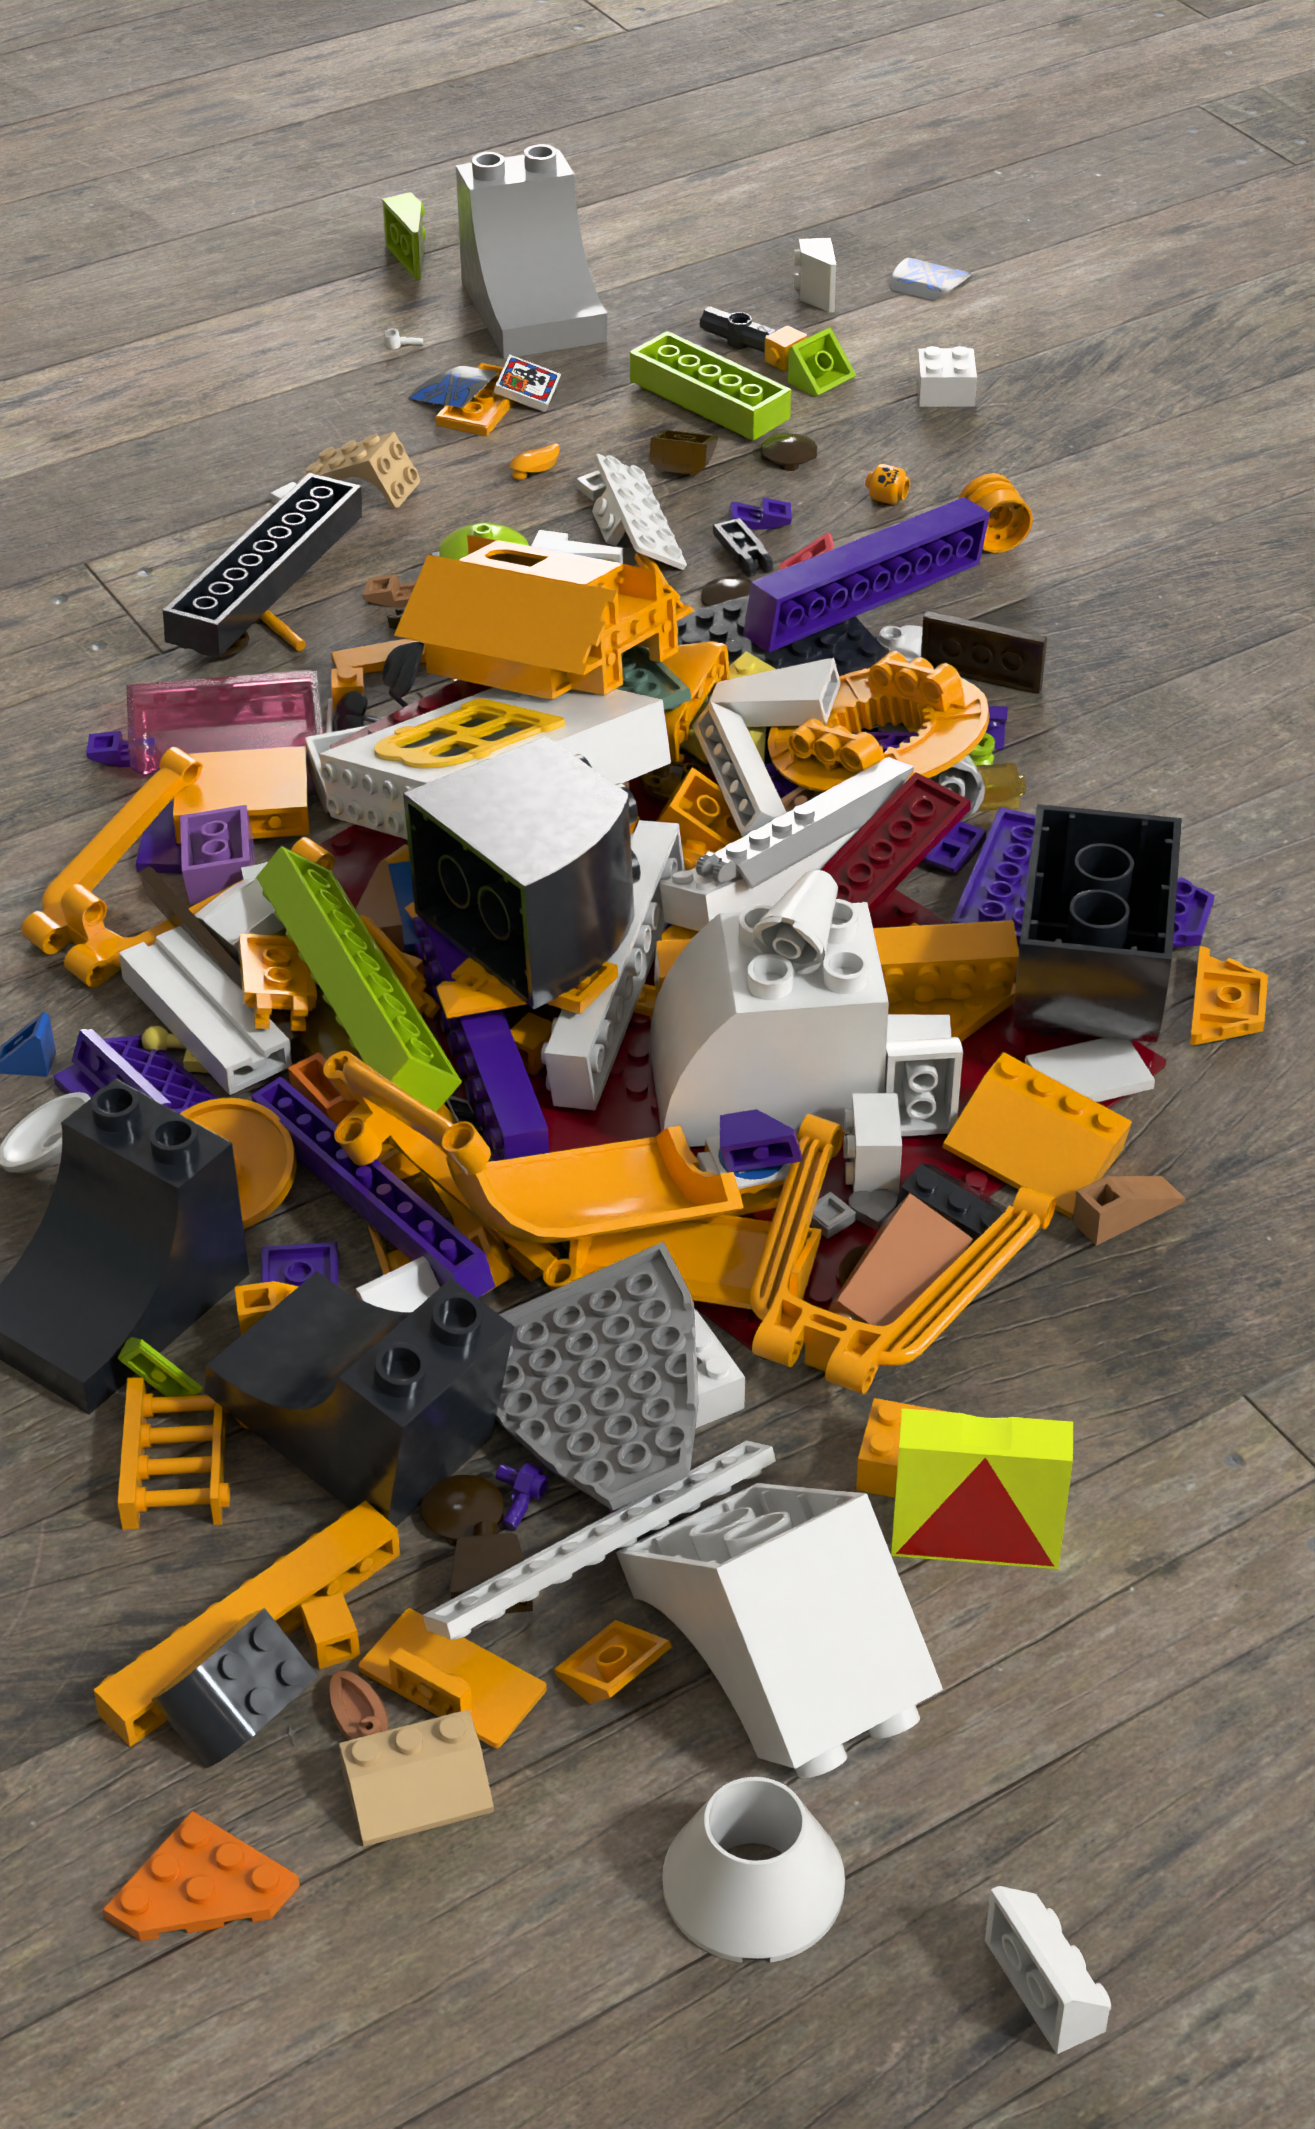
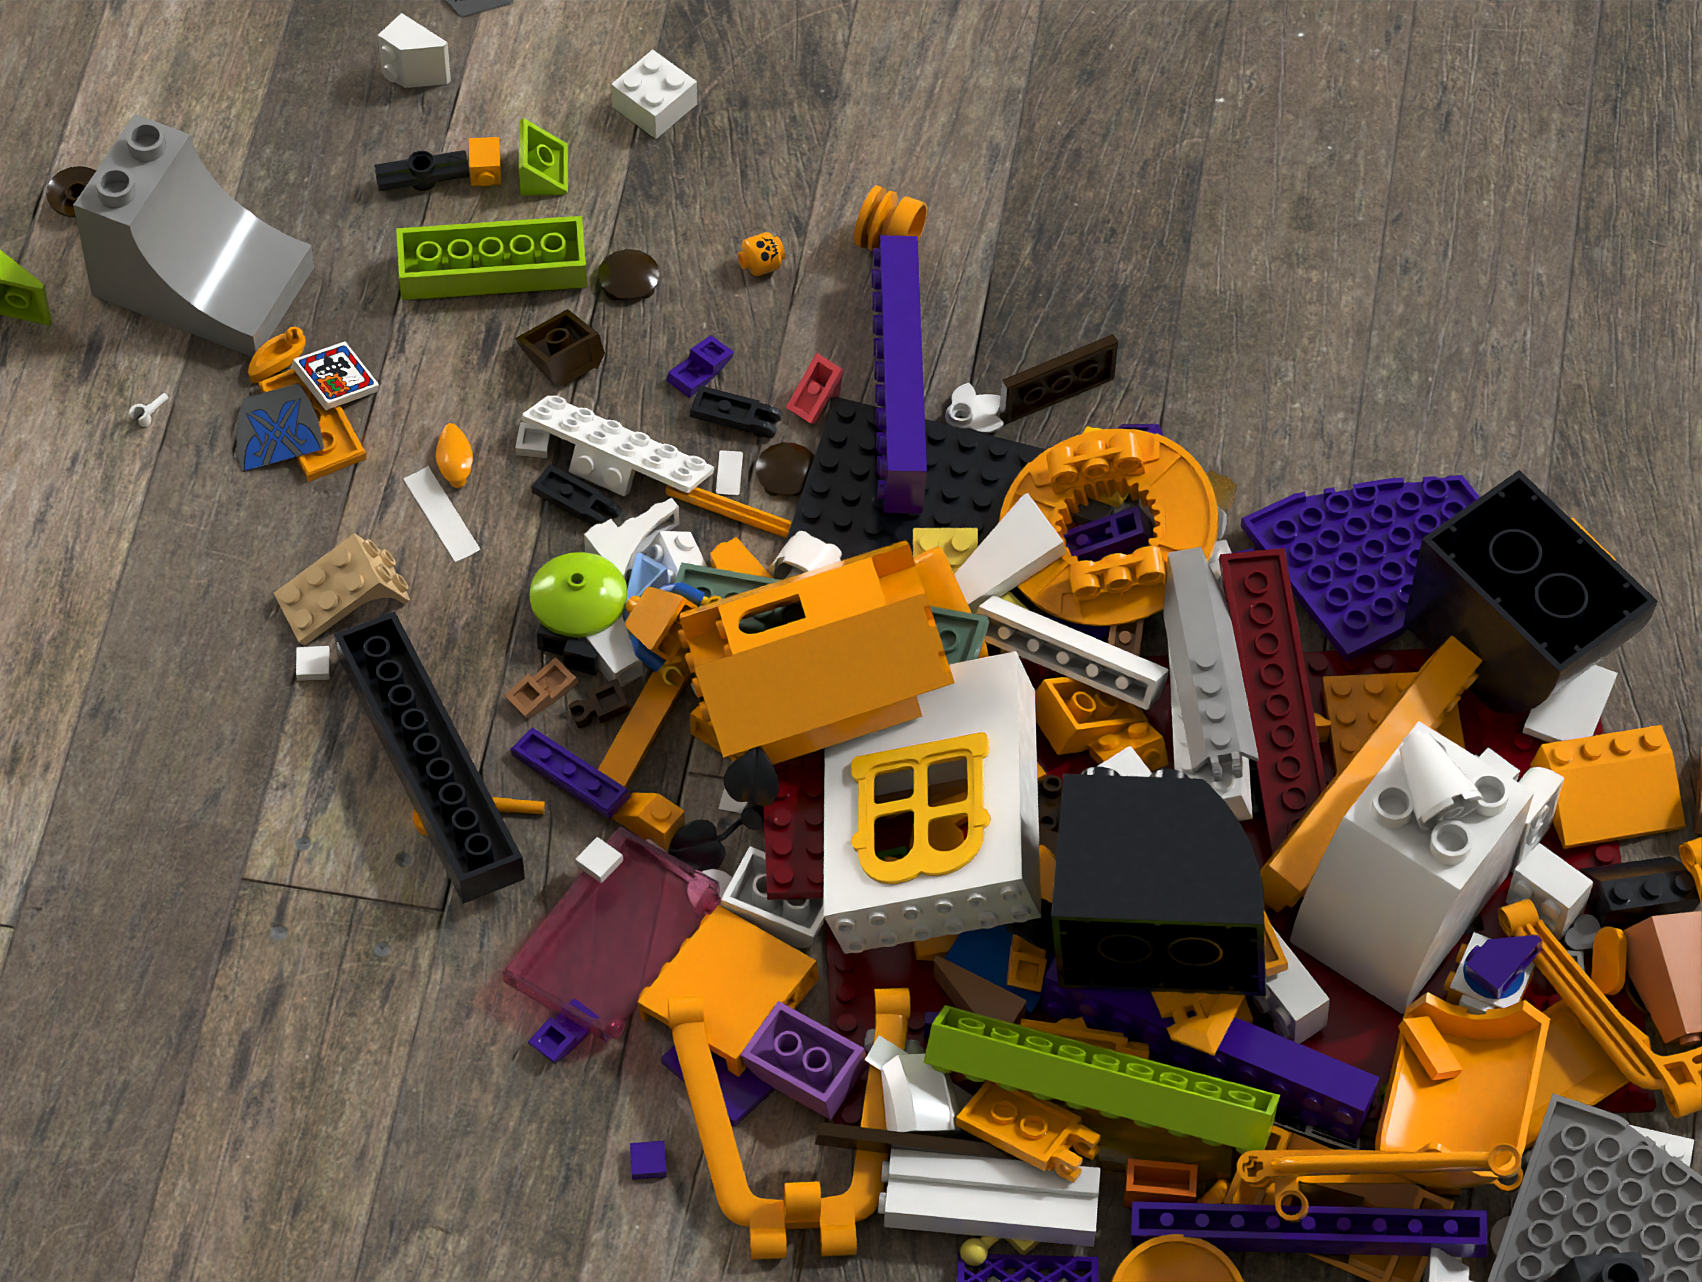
camera: 50 degrees left, 15 degrees up
(57, 845) = (648, 1160): none -> dark purple tile
(271, 671) = (599, 860): none -> white tile
(340, 635) = (570, 773): none -> dark purple tile
(484, 485) = (441, 514): none -> white sticker
(499, 356) = (276, 354): none -> light orange arm
(572, 517) = (574, 496): none -> black hinge
(631, 1161) = (1430, 1048): none -> light orange tile
(693, 576) = (729, 472): none -> white sticker
(861, 1226) = (1609, 960): none -> light orange tile

